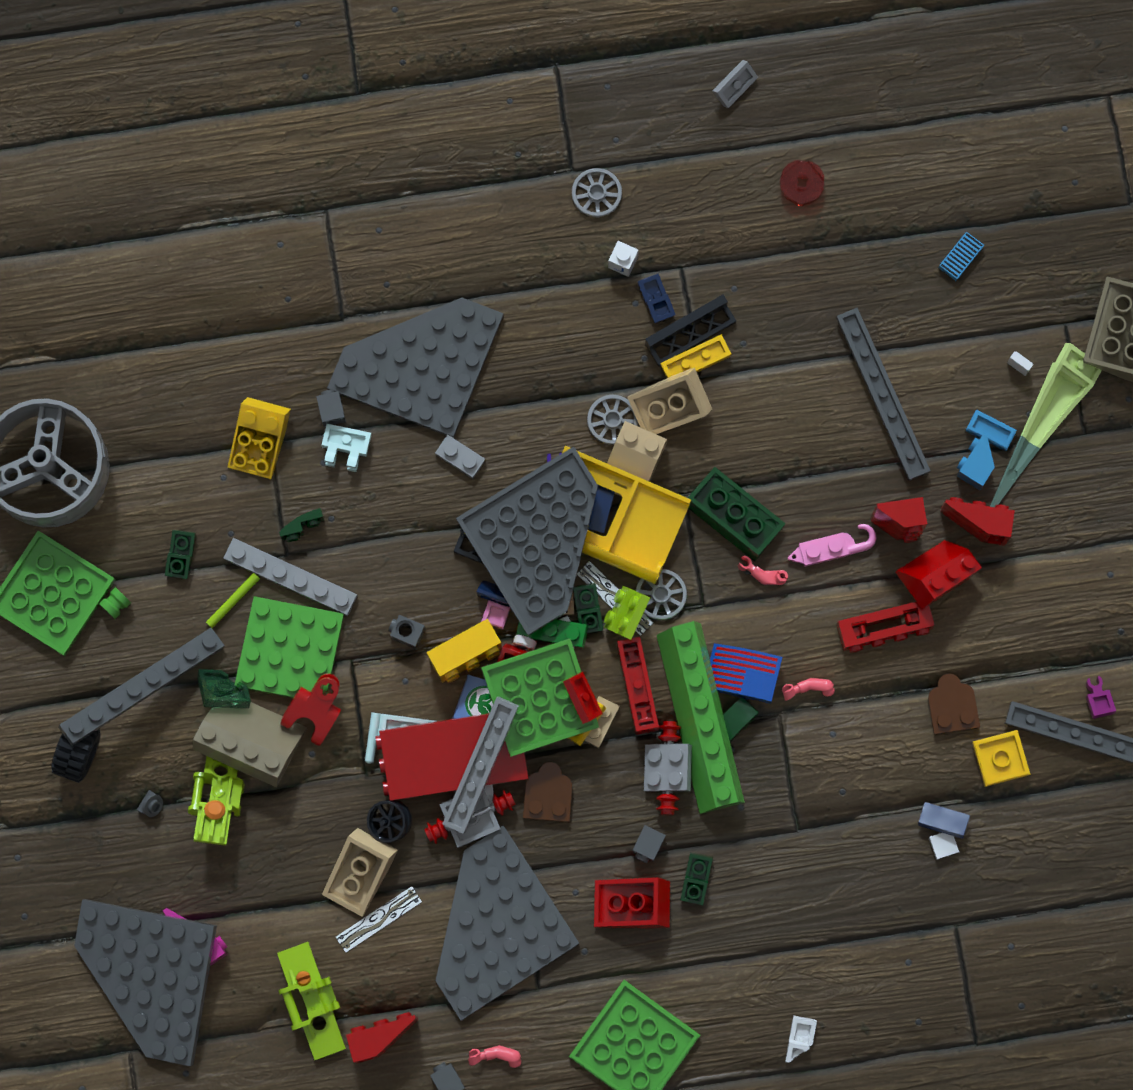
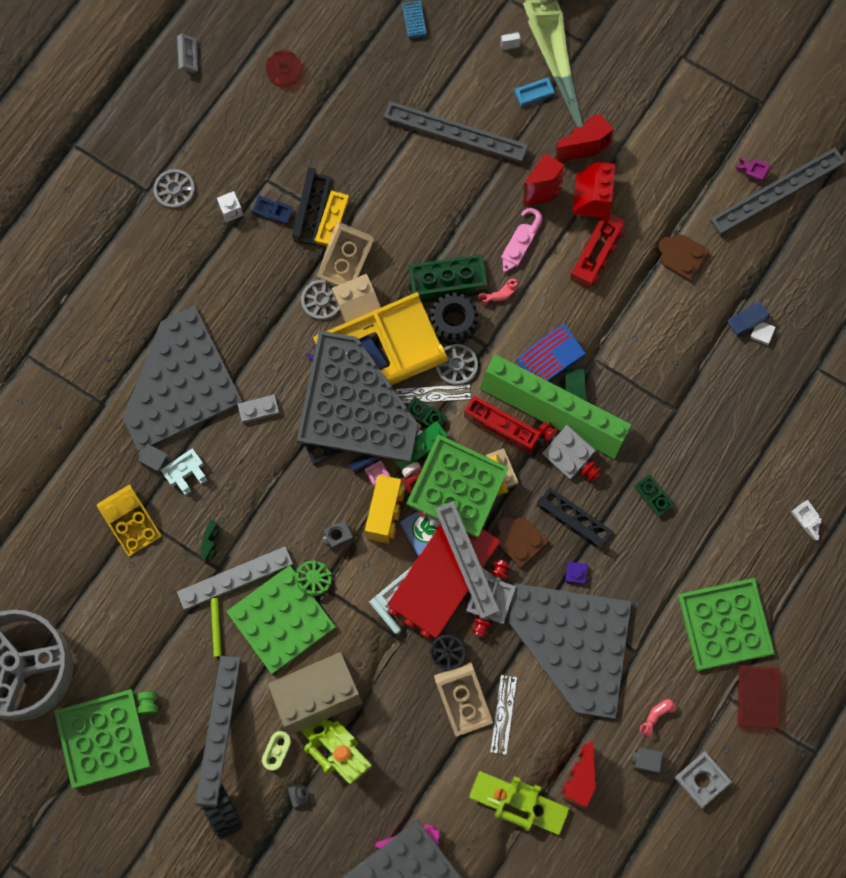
camera: 45 degrees left, 5 degrees down
(172, 750) = (276, 751): none -> yellowish green plate
(180, 554) = (155, 634): dark green slope -> none
(220, 691) = (268, 685): clear green plate -> none
(315, 706) = (333, 631): red piece -> none
(350, 644) = (313, 577): none -> bright green wheel
(562, 871) = (576, 573): none -> dark purple plate
(582, 697) = (482, 458): red plate -> none
(602, 826) = (571, 522): none -> black fence
(626, 612) = (451, 390): lime plate -> none
(632, 903) = (634, 547): red slope -> none
(648, 844) = (606, 505): dark grey brick -> none
(699, 535) = (454, 304): none -> black tyre
(816, 684) = (602, 317): coral arm -> none
(978, 465) = (549, 115): dark azure slope -> none
(1001, 758) = (739, 254): yellow plate -> none

